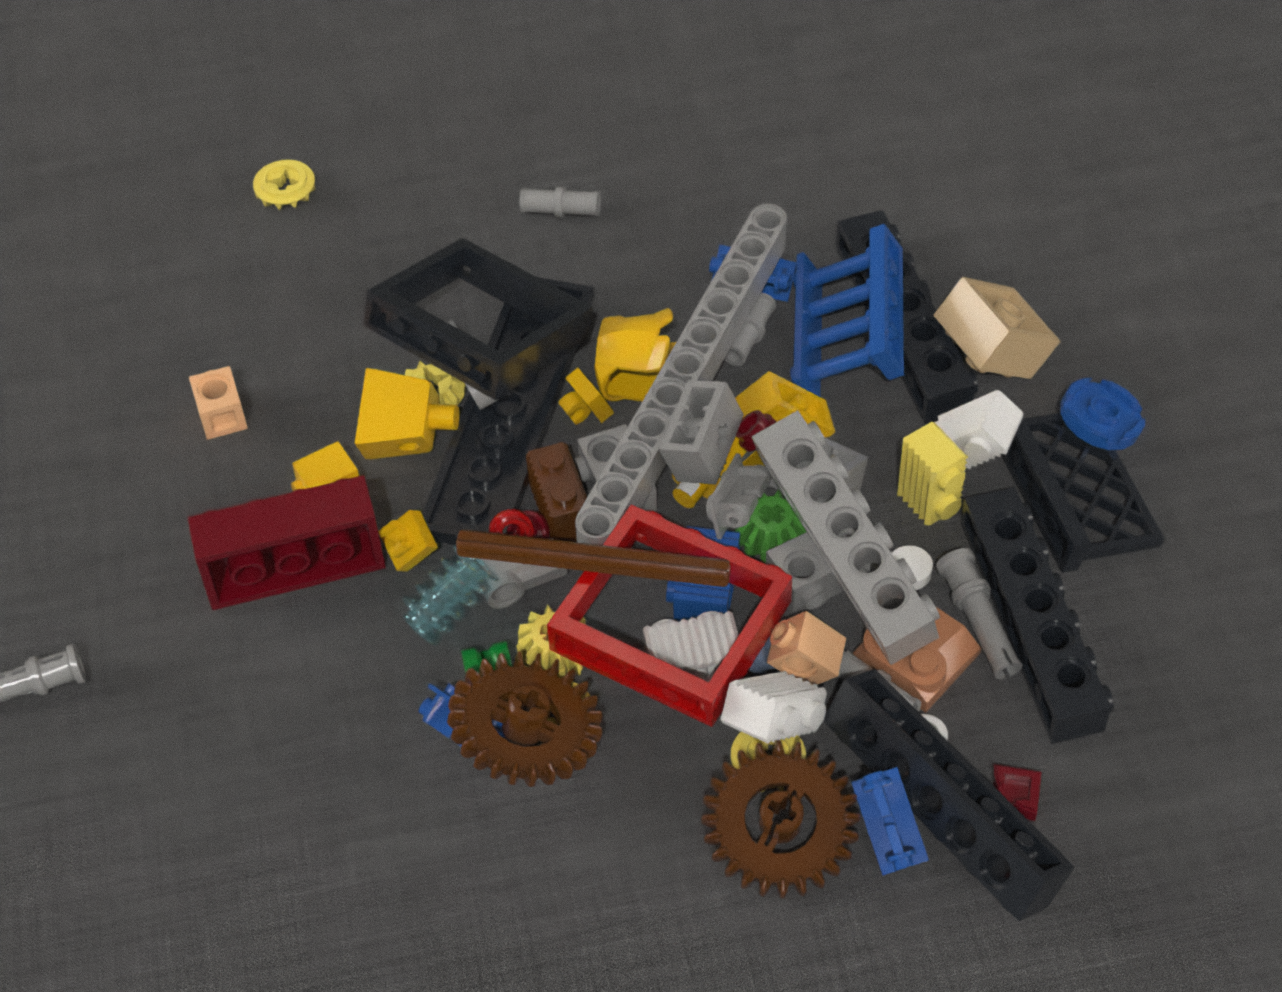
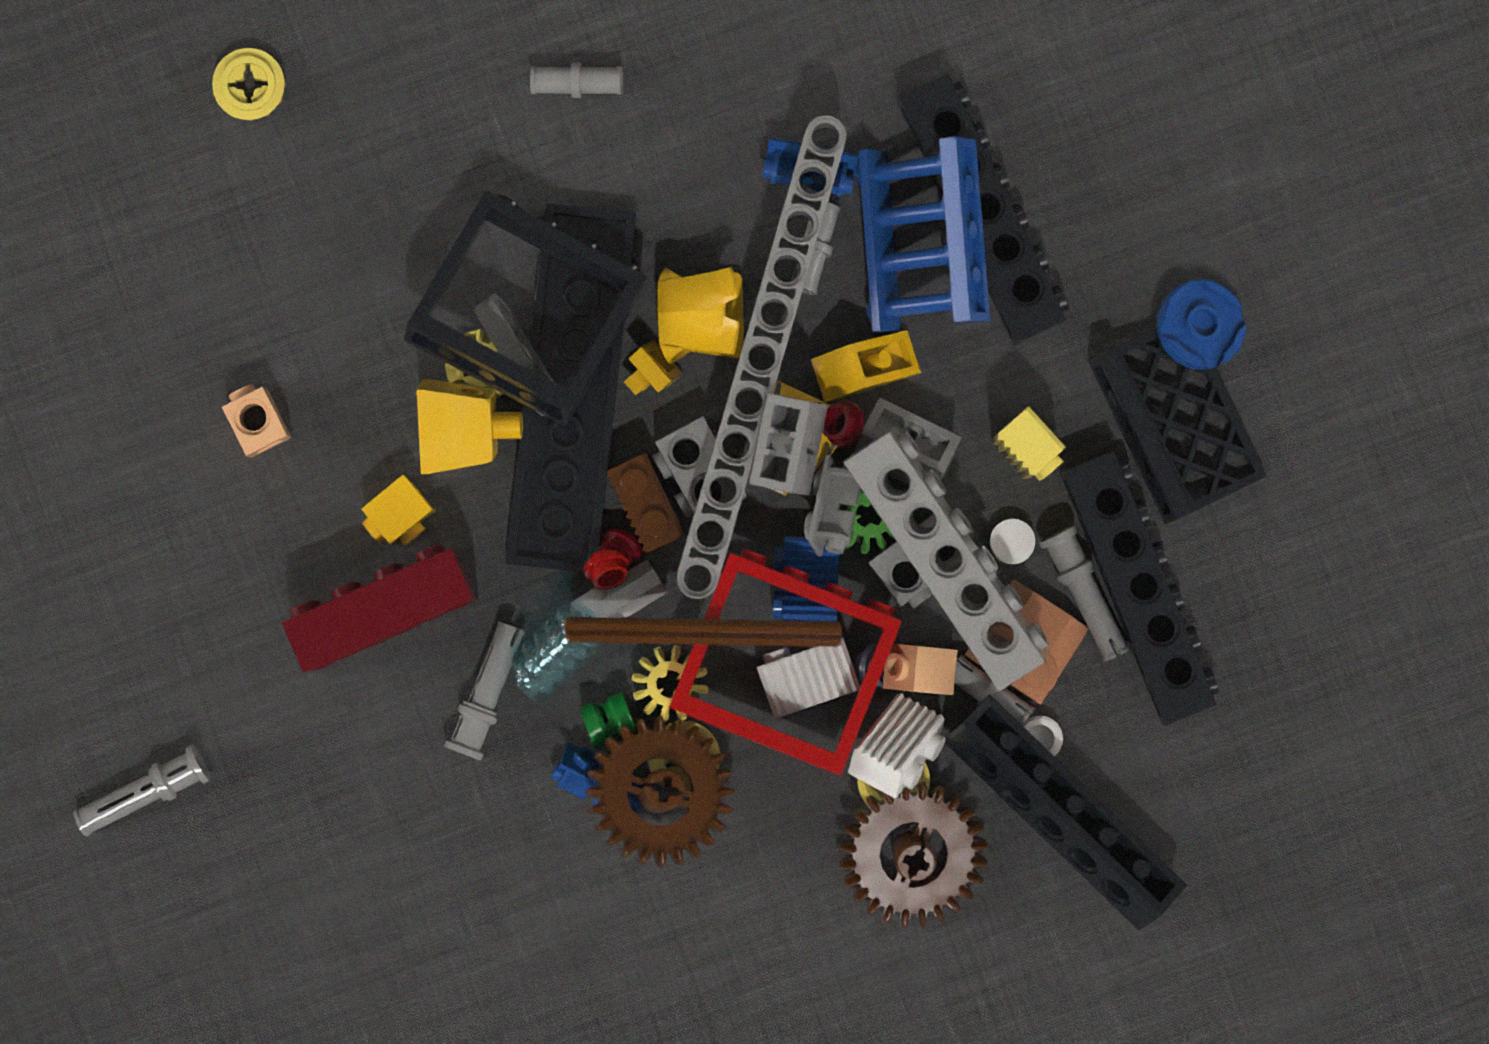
camera: 15 degrees left, 35 degrees up
(362, 649) = (479, 710): none -> light grey pin
(408, 540) = (499, 580): yellow tile -> none
(890, 821) = (1016, 845): blue hinge -> none
(982, 427) = (1067, 386): white brick -> none
(996, 329) = (1084, 240): tan brick -> none
(1019, 787) = (1132, 784): dark red tile -> none

